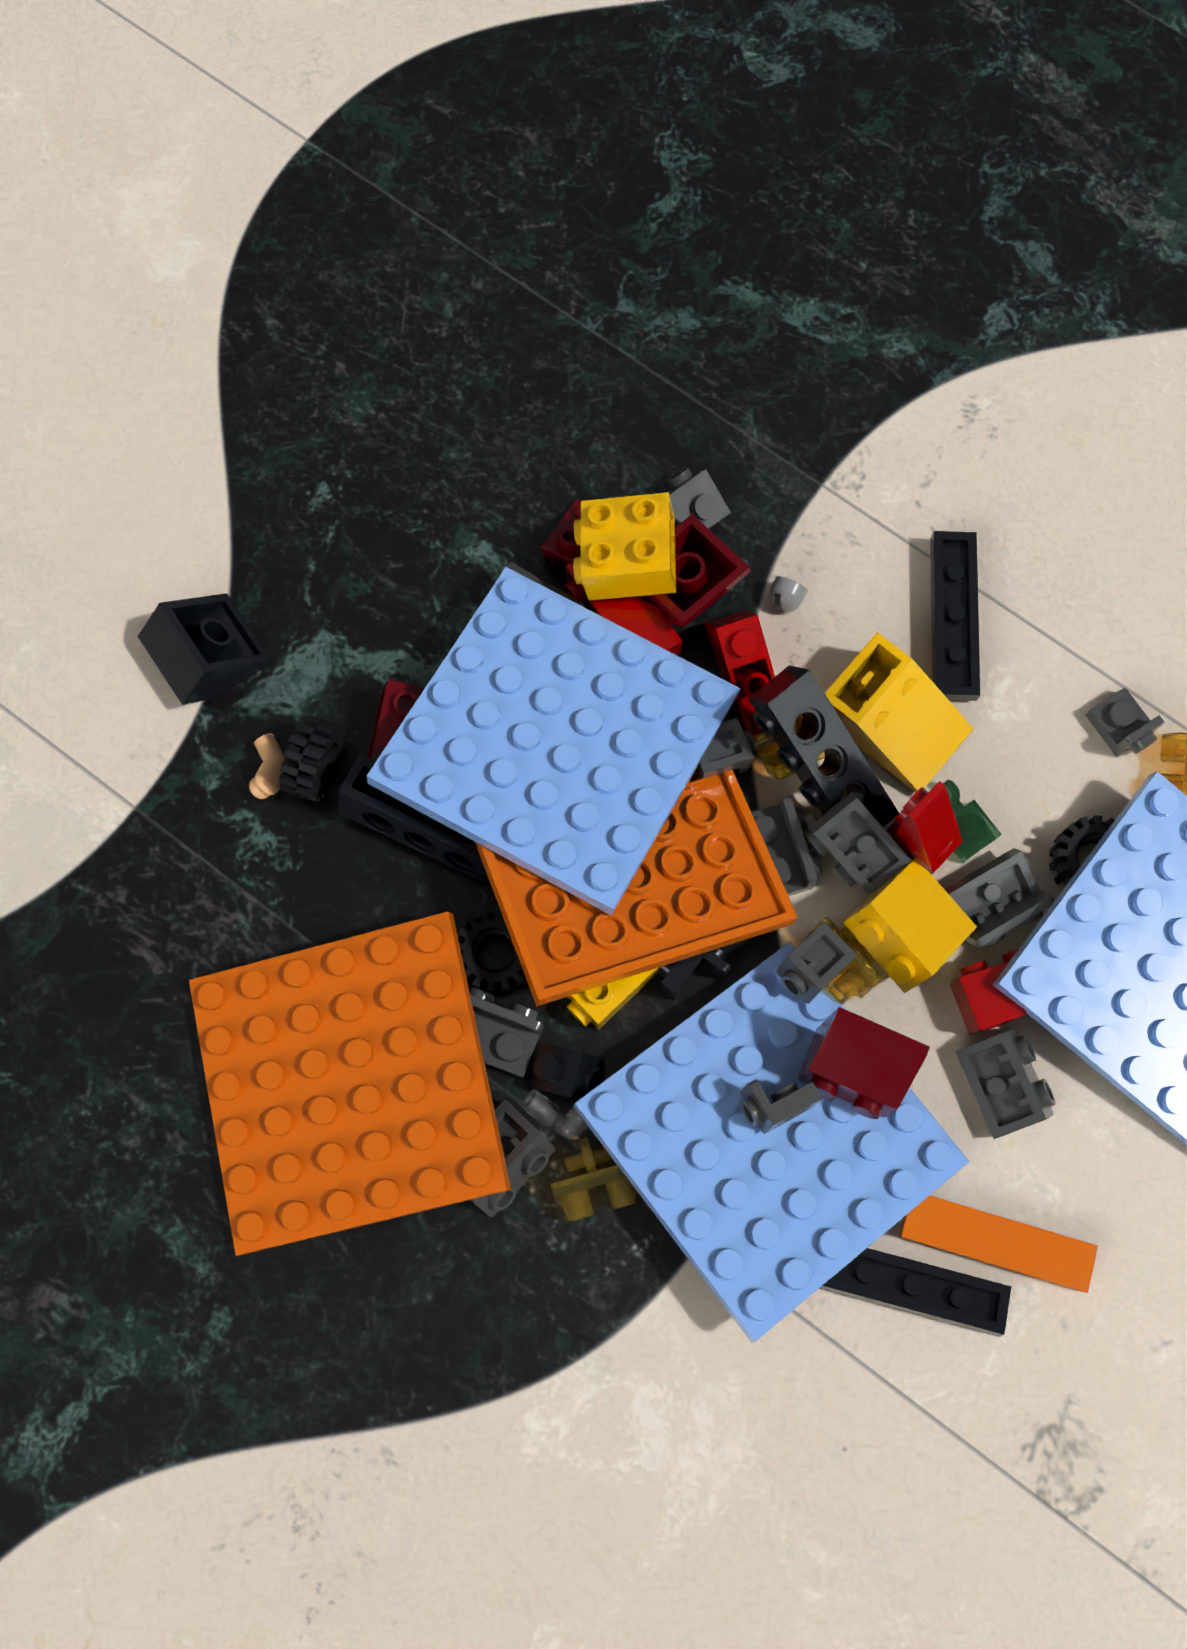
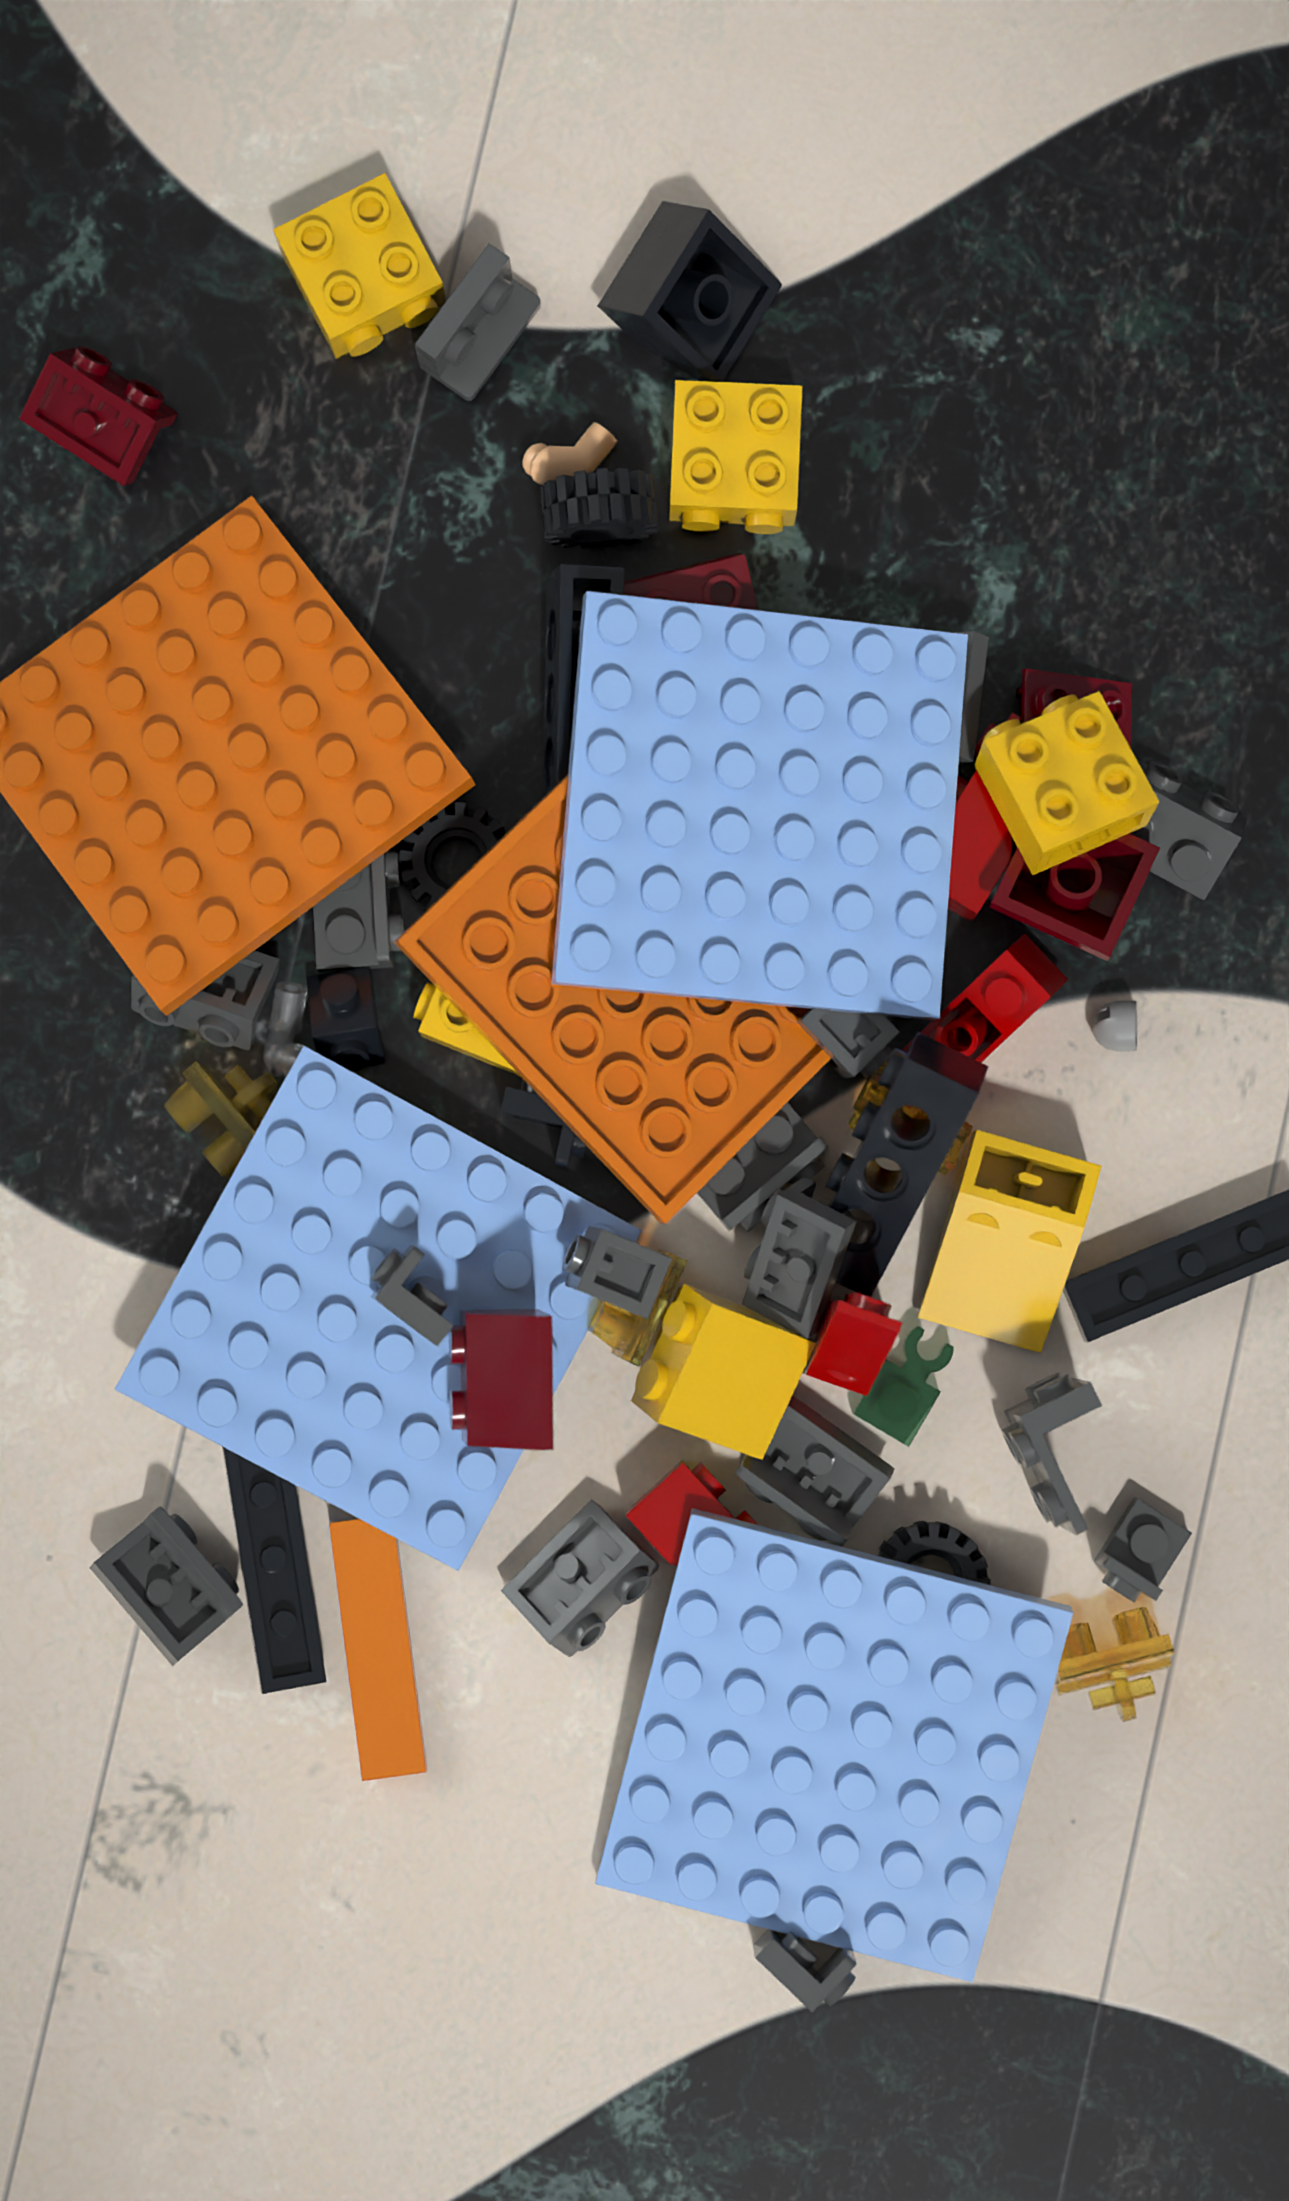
camera: 65 degrees right, 10 degrees up
(78, 842) = (361, 267): none -> yellow brick
(80, 1058) = (96, 412): none -> dark red bracket
(155, 785) = (476, 325): none -> dark grey bracket
(320, 664) = (735, 455): none -> yellow brick
(900, 1368) = (168, 1584): none -> dark grey bracket
(1027, 752) = (1049, 1406): none -> dark grey bracket

